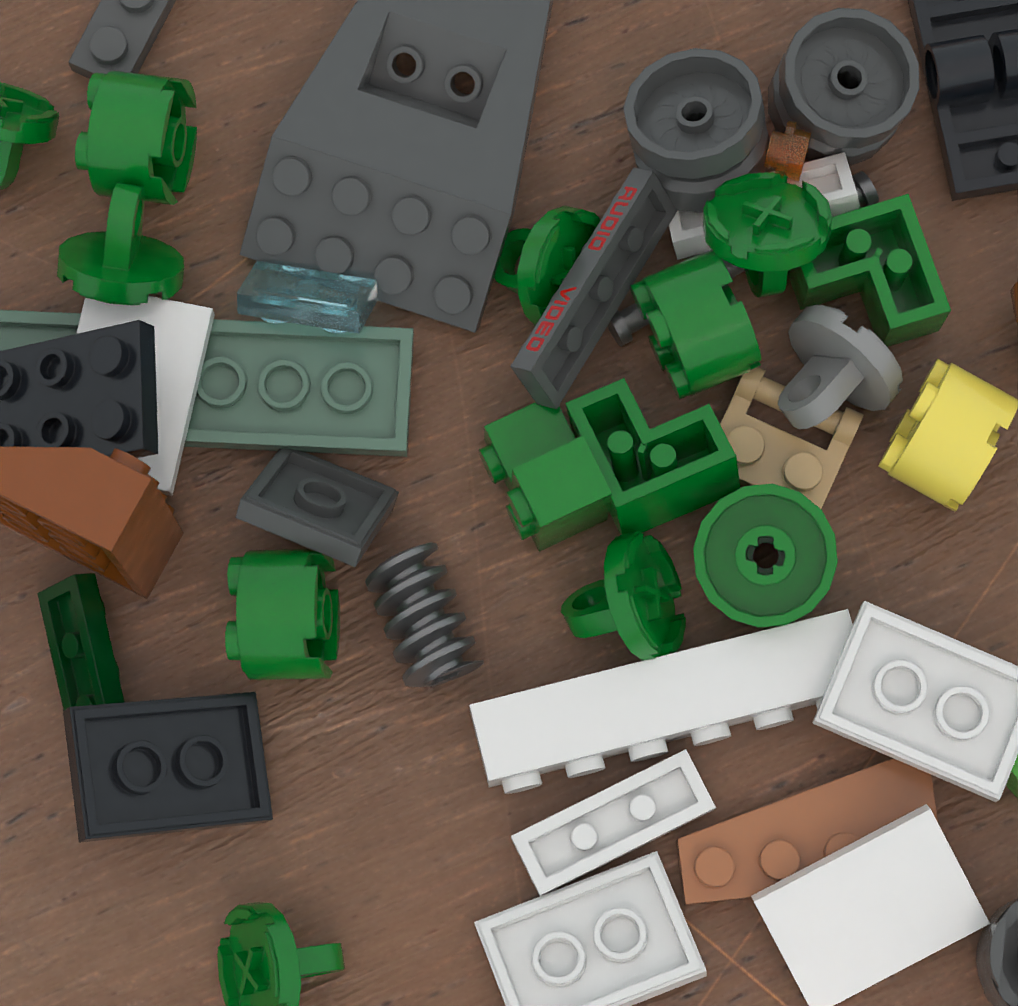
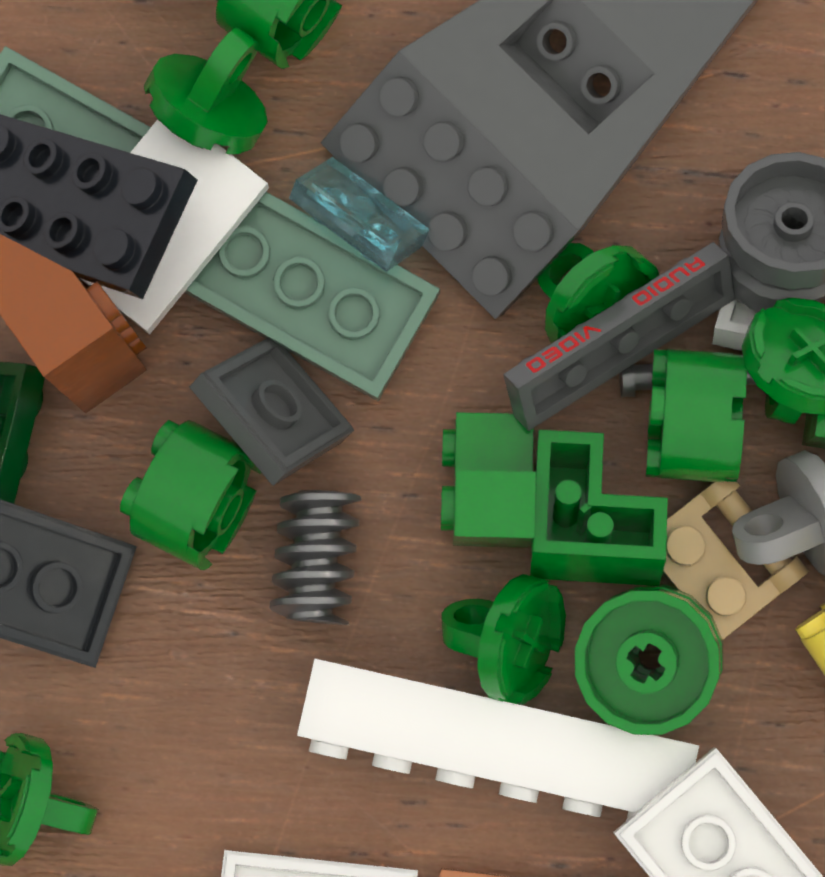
camera: 30 degrees right, 5 degrees up
(613, 822) = (391, 826): white plate -> none

